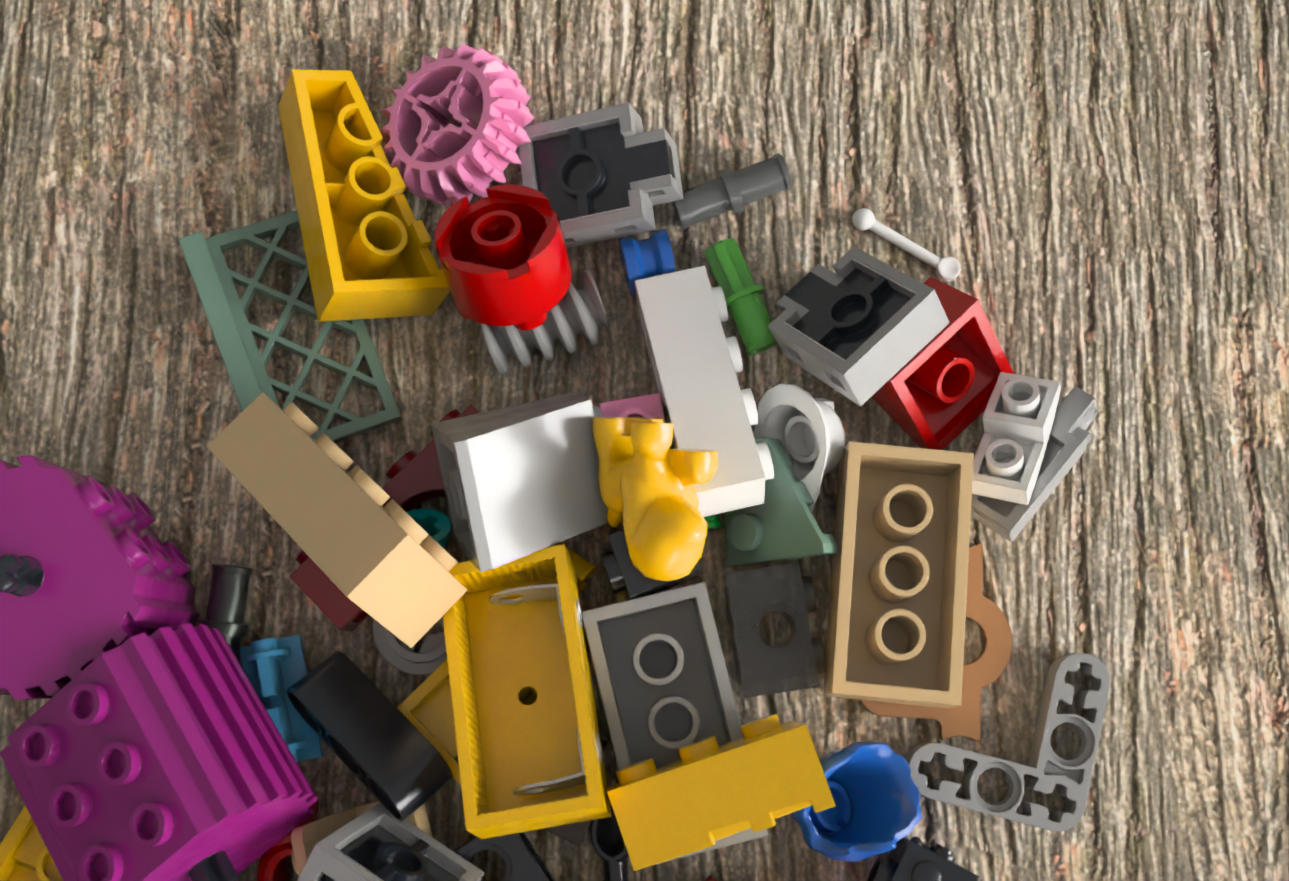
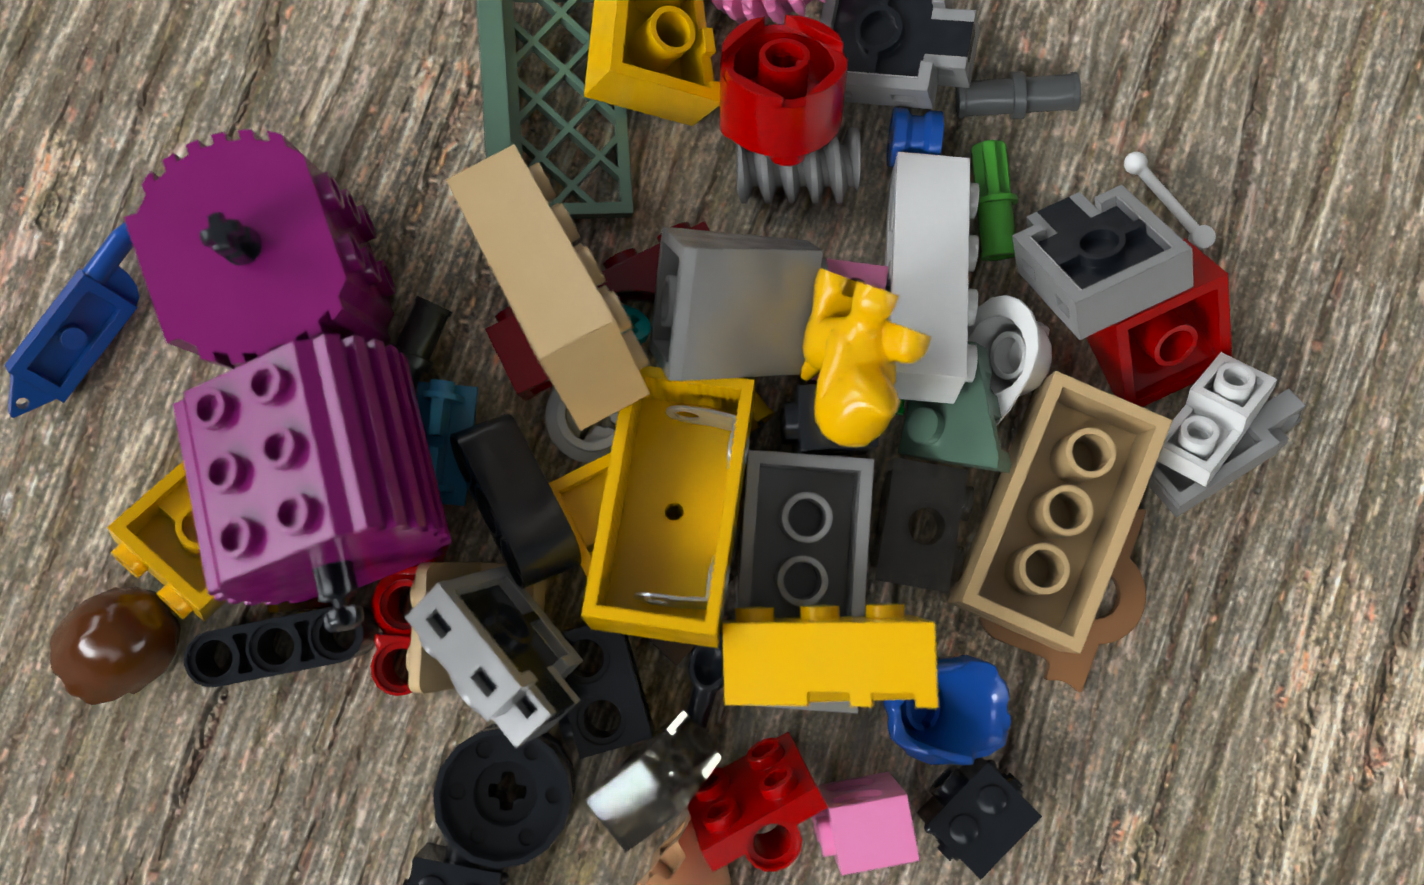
camera: 20 degrees right, 5 degrees up
(1044, 766) = (1134, 736): light grey beam -> none

